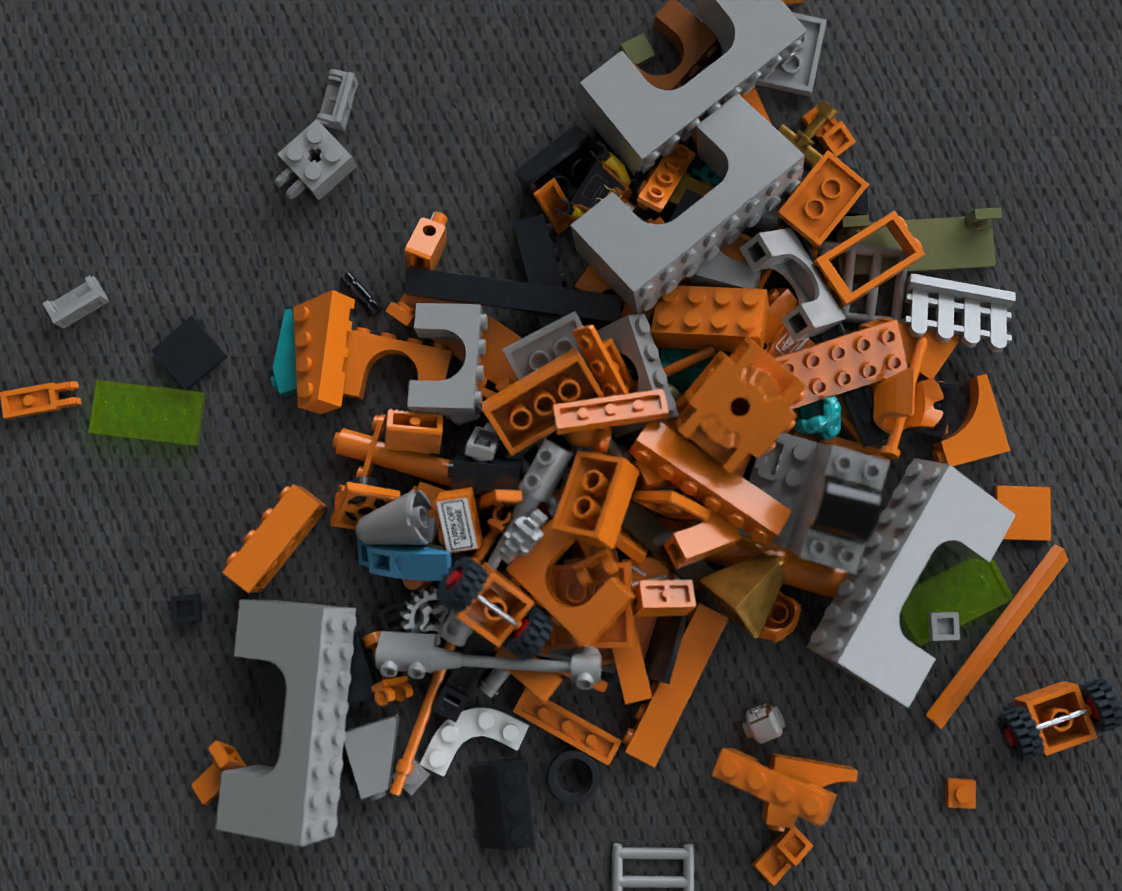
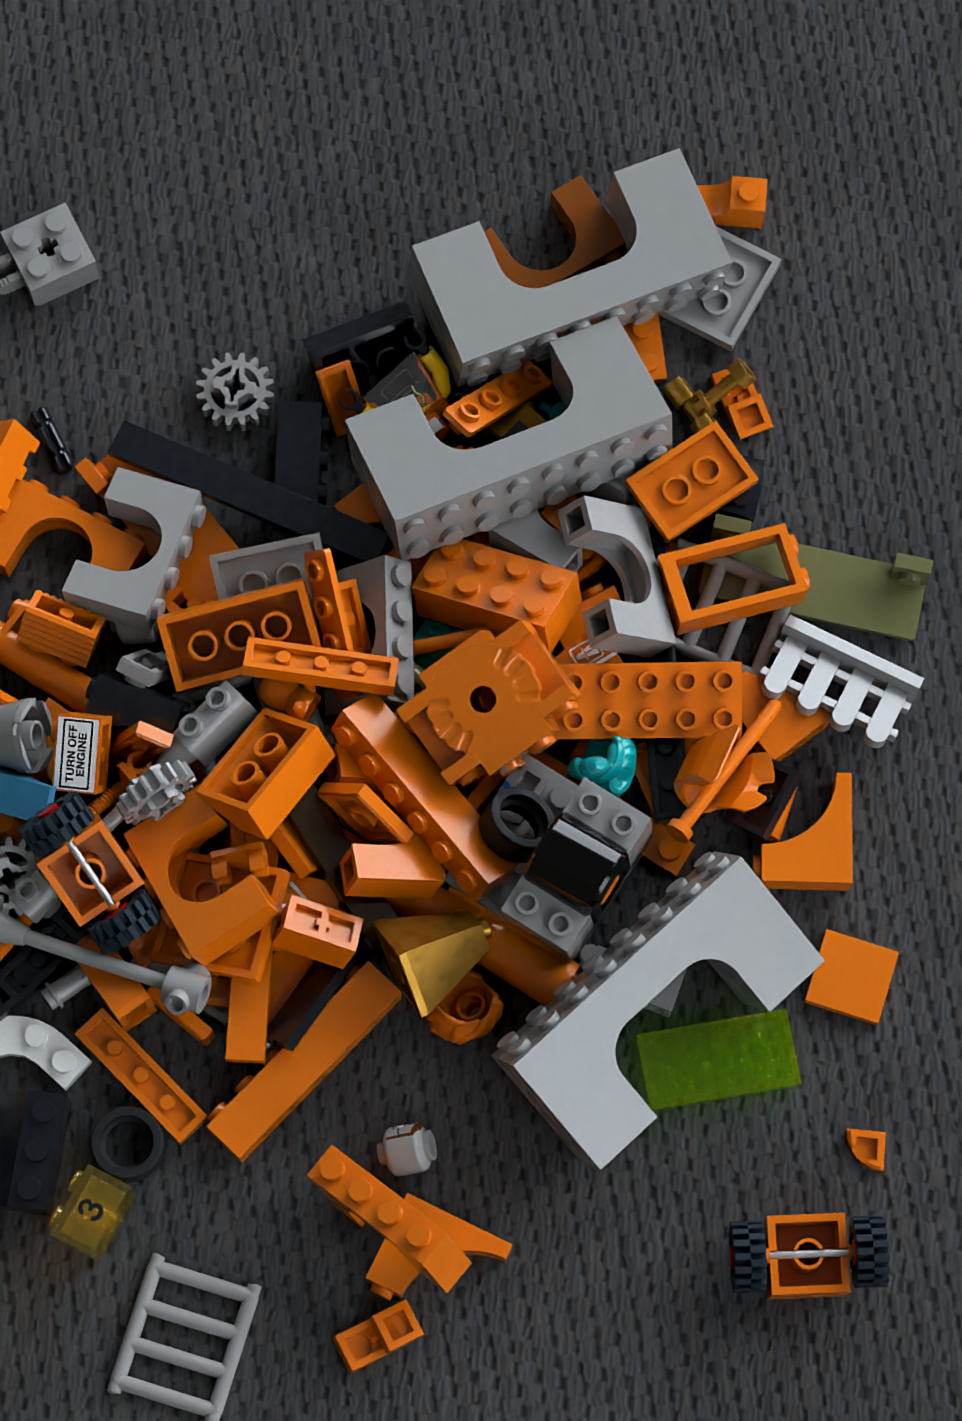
camera: 20 degrees right, 10 degrees down
(338, 99) = (102, 187): light grey hinge -> none
(427, 243) = (158, 397): orange torso -> none
(468, 222) = (223, 381): none -> light grey gear
(567, 838) = (91, 1213): none -> clear yellow brick
(638, 50) = (518, 231): olive tile -> none
(773, 497) = (500, 838): none -> black tyre
(943, 626) = (689, 1087): light grey plate -> none
(960, 793) = (649, 1326): orange plate -> none
(997, 636) = (763, 1129): orange tile -> none
(1067, 626) = (867, 1147): none -> orange tile

